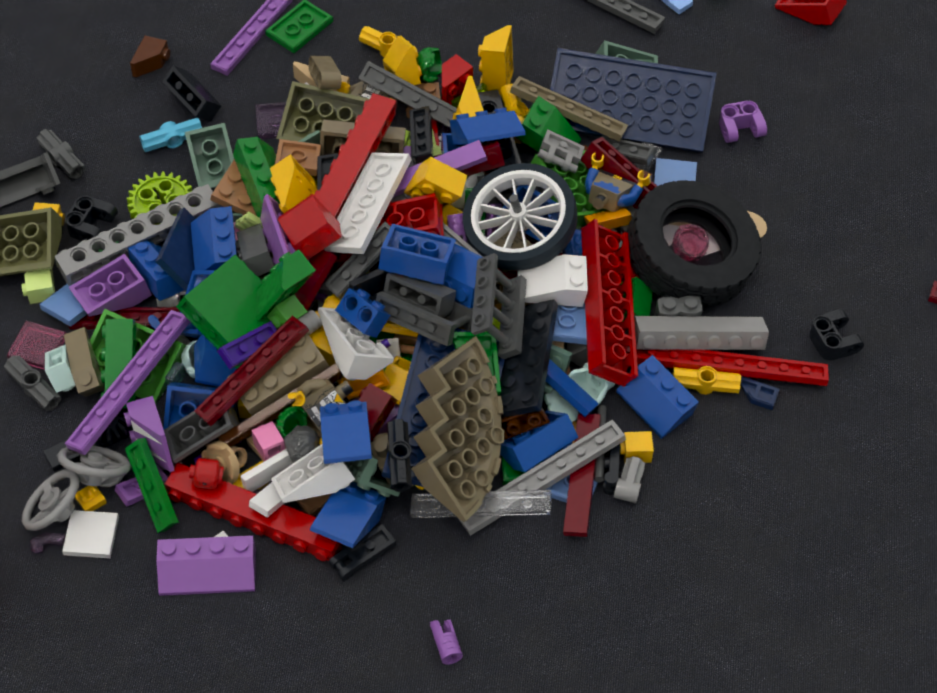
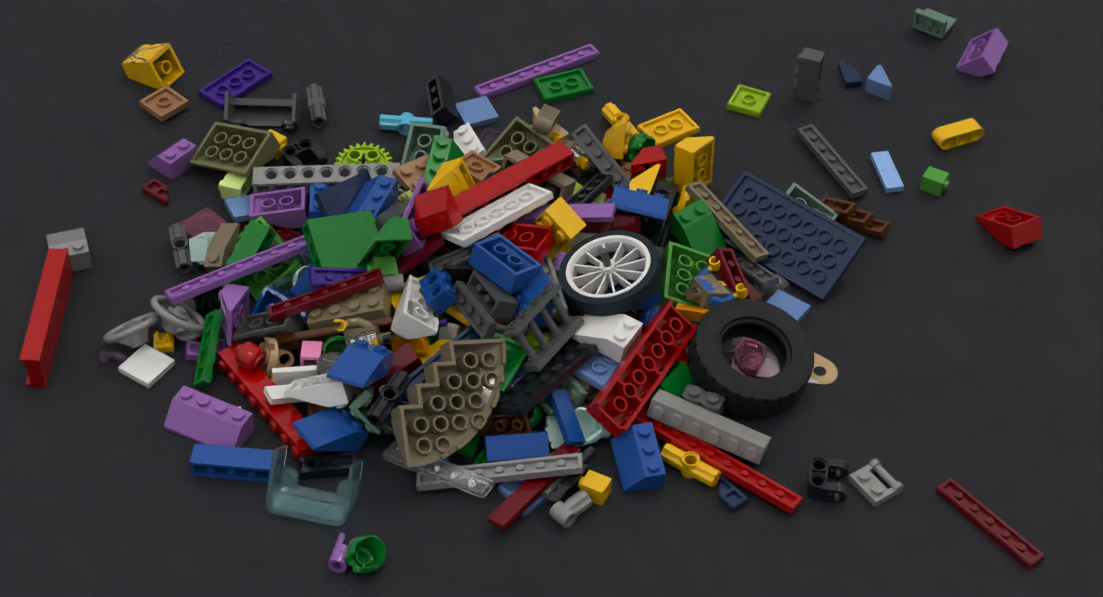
camera: 30 degrees right, 10 degrees down
(149, 56) = (430, 63): reddish brown slope -> none
(233, 91) = (477, 112): none -> medium blue tile
(245, 126) = (467, 140): none -> white wing
(266, 598) = (231, 462): none -> blue brick
(378, 601) = (306, 503): none -> clear light blue windscreen
(435, 28) = (669, 127): none -> yellow tile
(475, 631) = (366, 554): none -> green hair
(562, 147) = (694, 243): light grey plate -> none
(674, 53) = (856, 218): none -> reddish brown slope
(740, 116) = (874, 286): medium lavender piece -> none
(872, 322) = (871, 487): none -> light grey plate

